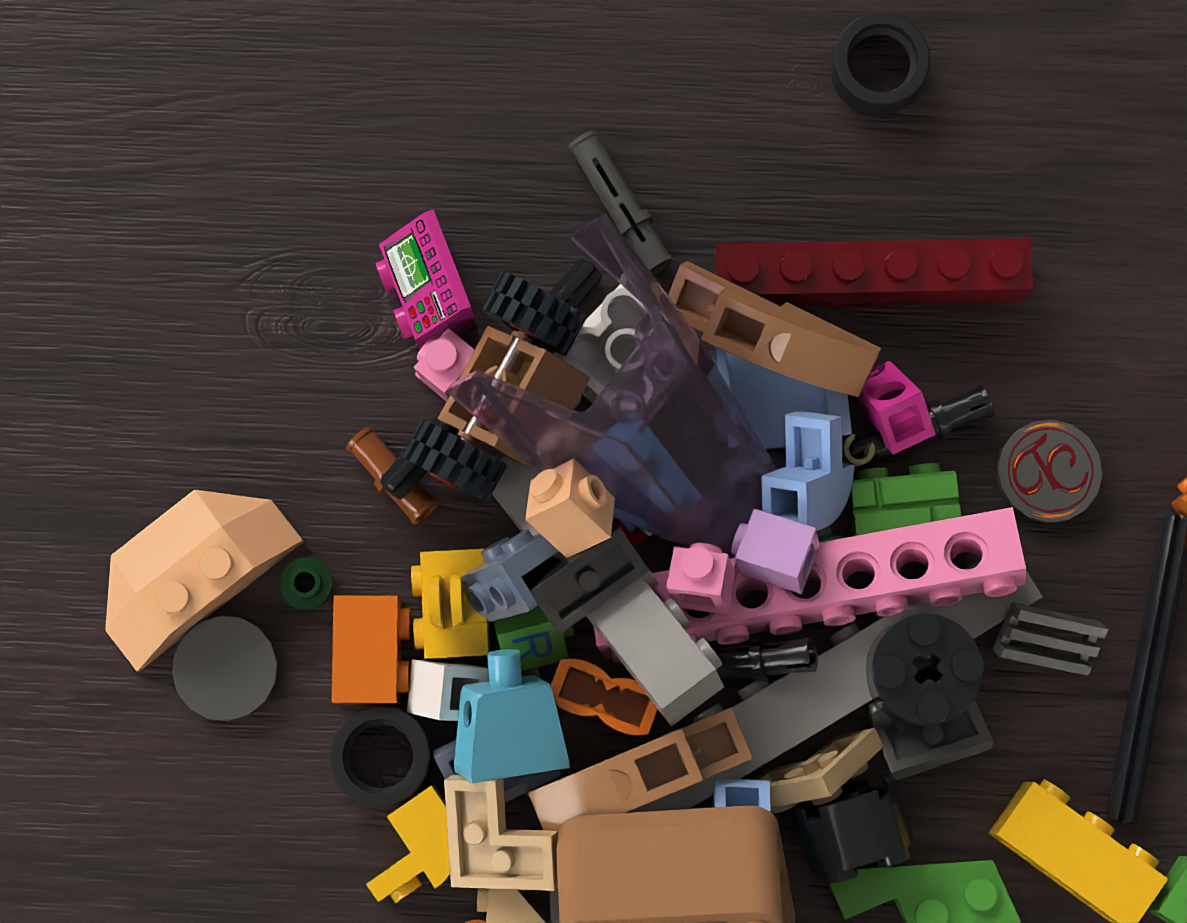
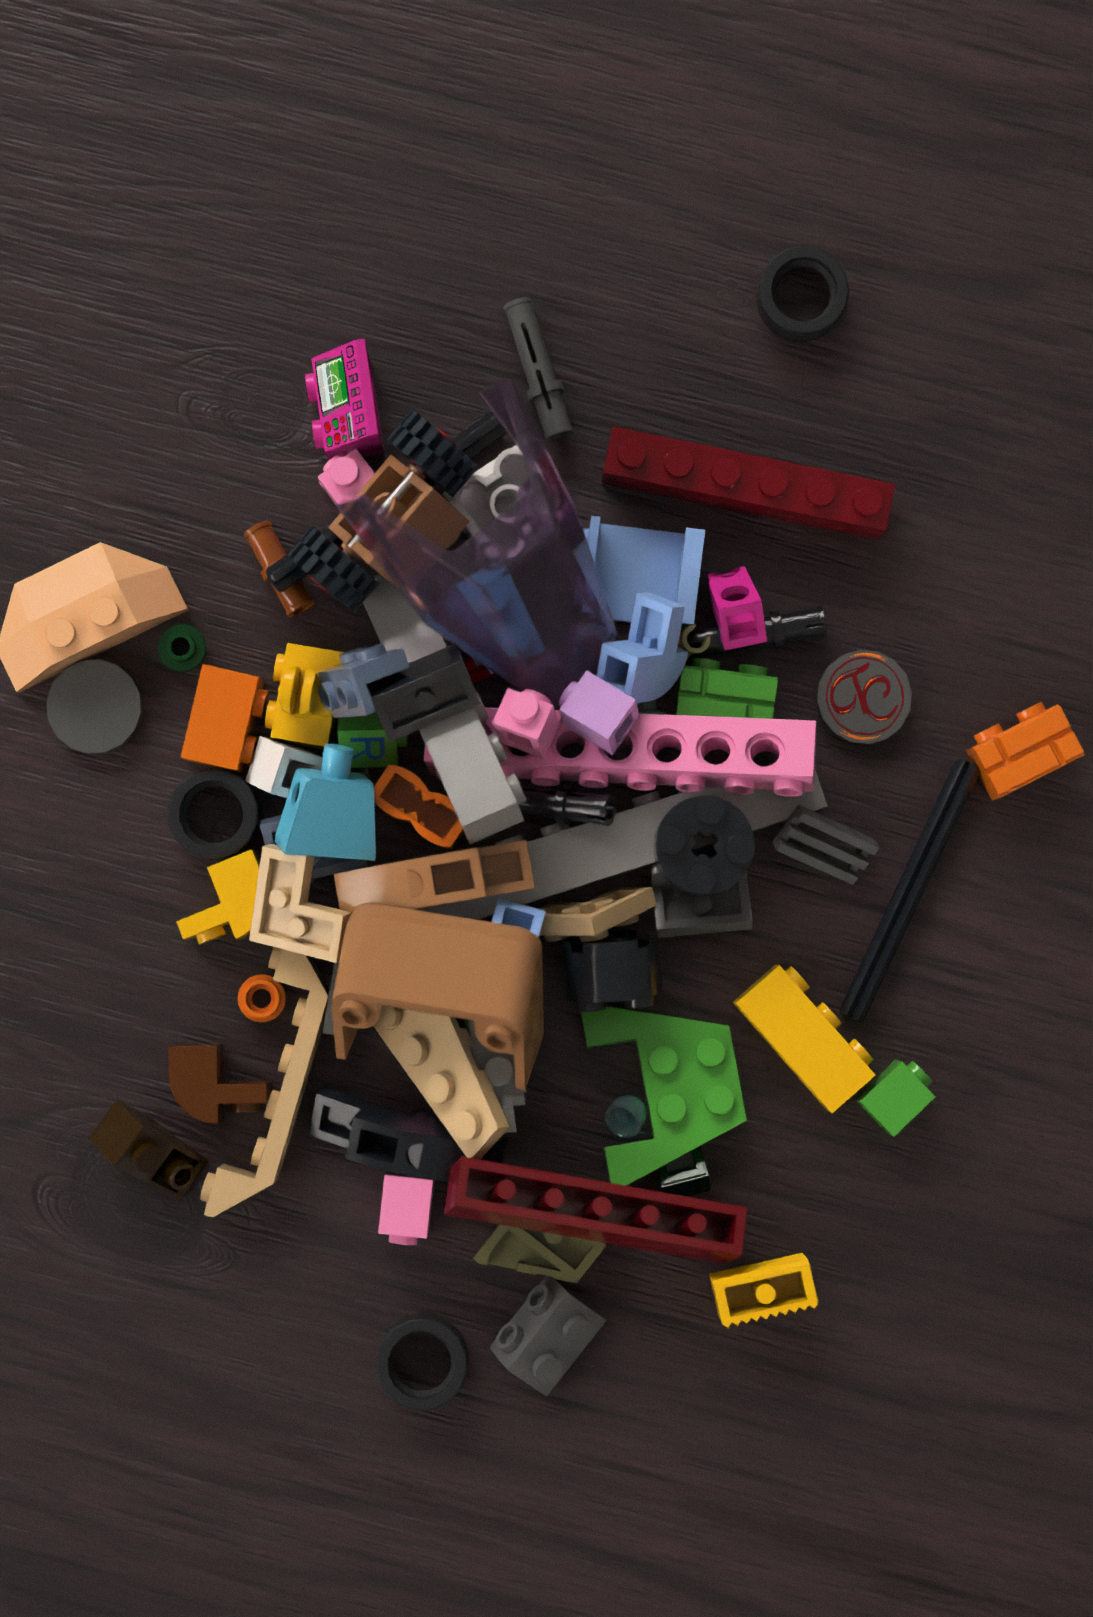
camera: 10 degrees right, 5 degrees up
(570, 508) = (422, 633): light nougat brick -> none
(772, 335) = (639, 520): medium nougat slope -> none

